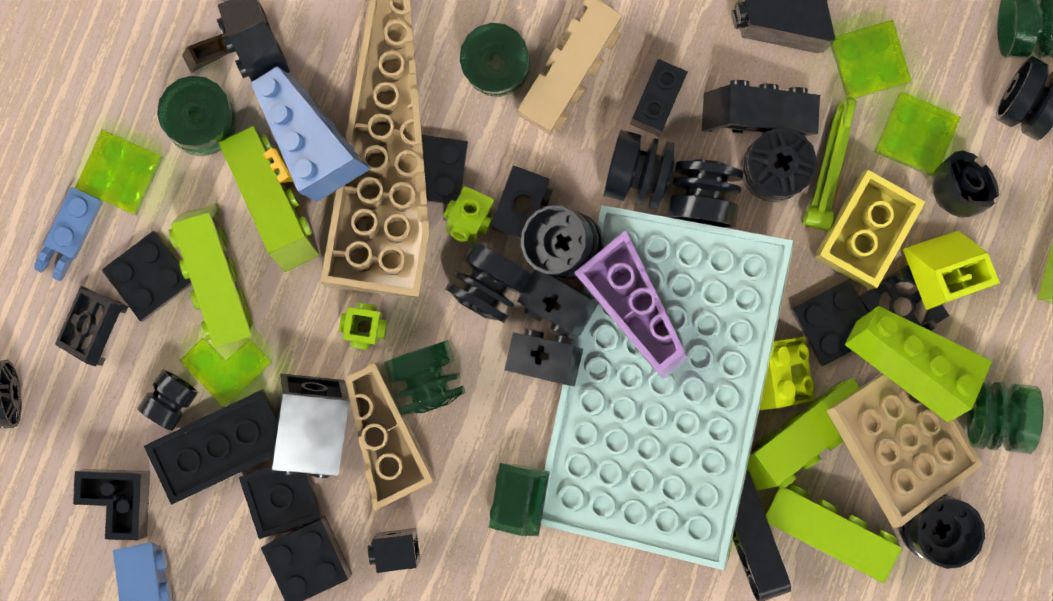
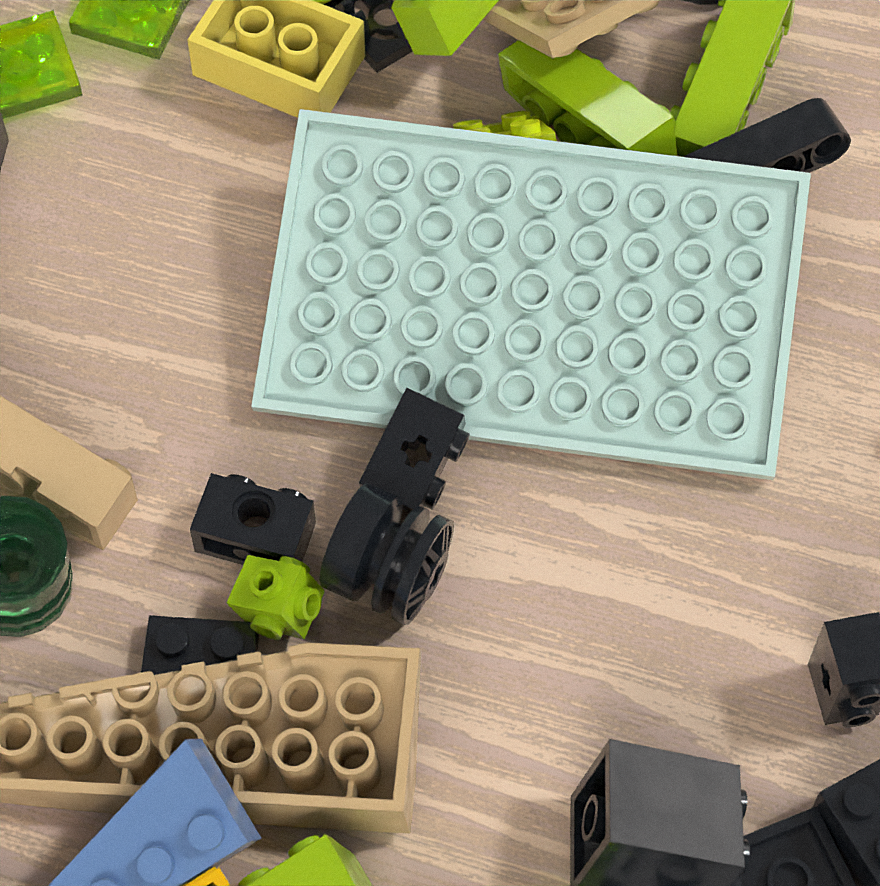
camera: 90 degrees left, 25 degrees down
(350, 323) = (475, 755): lime brick -> none
(388, 446) = (674, 700): tan wedge -> none
(425, 378) = (567, 638): clear green wheel -> none
(519, 499) = (740, 496): clear green piece -> none
(526, 353) = (521, 439): black brick -> none
(546, 239) = (318, 412): black wheel -> none
(629, 298) = (412, 321): lavender wedge -> none
(639, 169) = (193, 345): black wheel -> none
(658, 97) = (76, 333): black brick -> none
(706, 193) = (227, 251): black wheel -> none
(760, 108) = (95, 198): black wedge -> none
(778, 184) = (182, 163): black wheel -> none
(819, 213) = (254, 119): lime piece -> none
(829, 320) = (417, 90): black plate -> none

